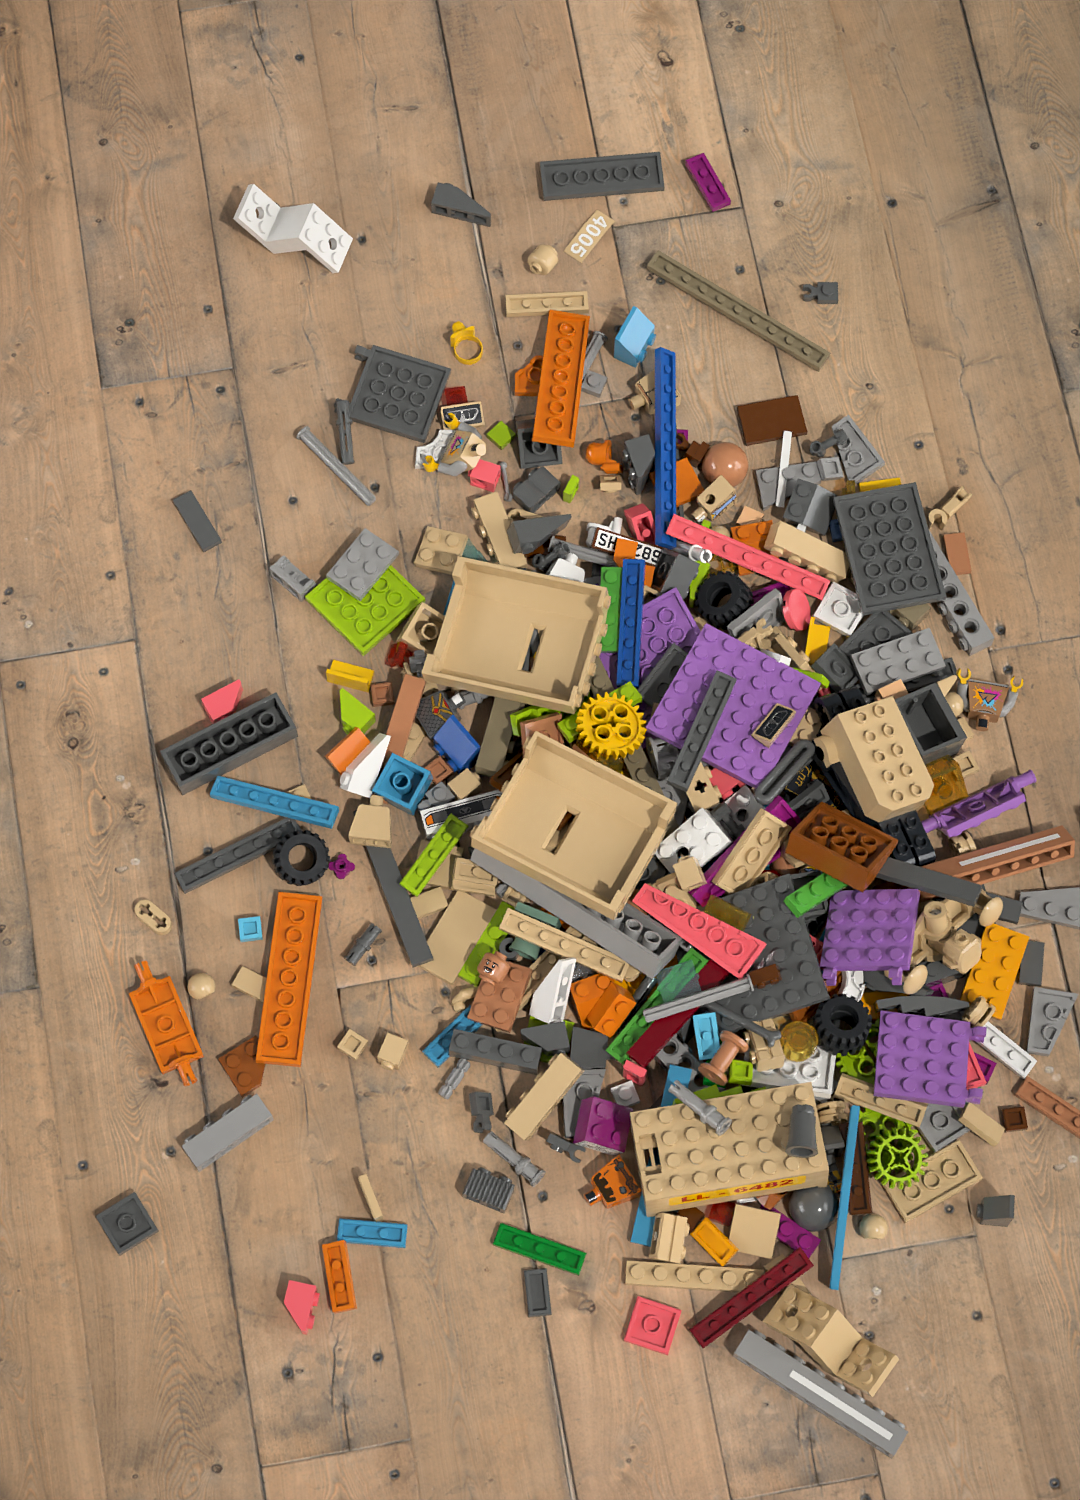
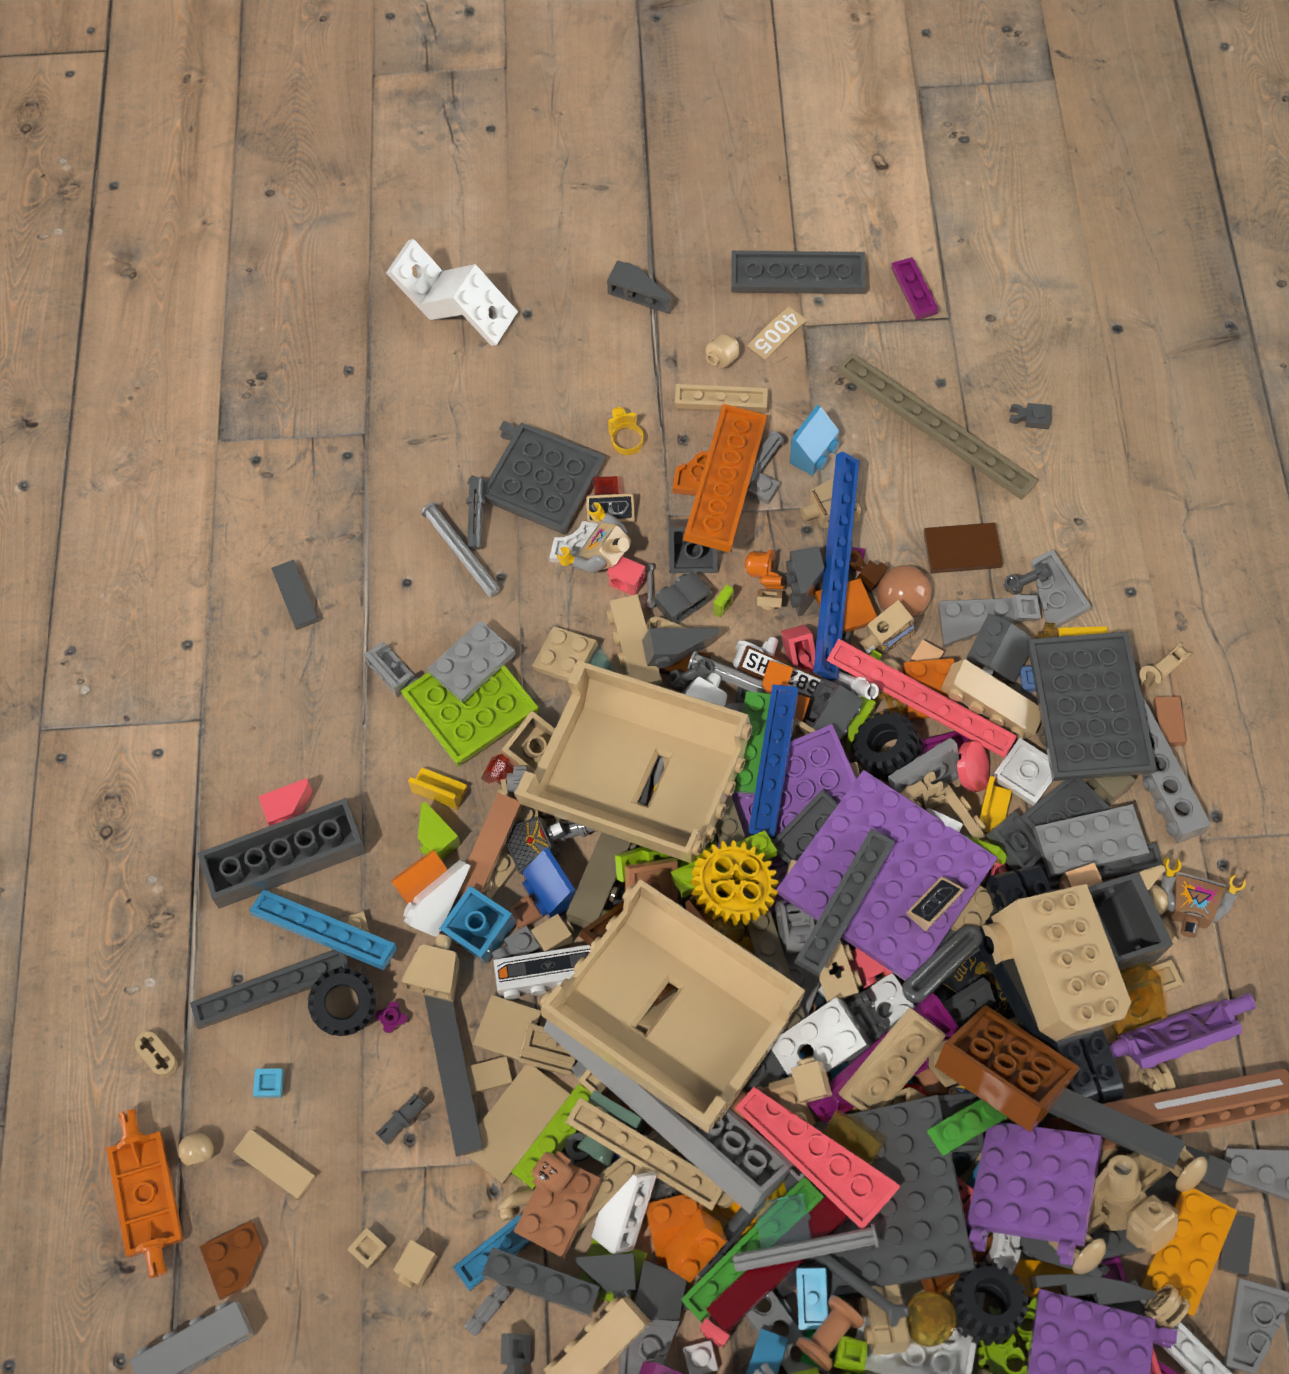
camera: 10 degrees right, 5 degrees down
(289, 979) = (302, 1156): orange plate -> none
(382, 694) = (472, 813): nougat tile -> none
(434, 855) = (502, 1017): lime tile -> none
(501, 435) = (651, 534): lime tile -> none
(765, 976) = (895, 1228): reddish brown piece -> none
(783, 464) = (972, 597): white sticker -> none

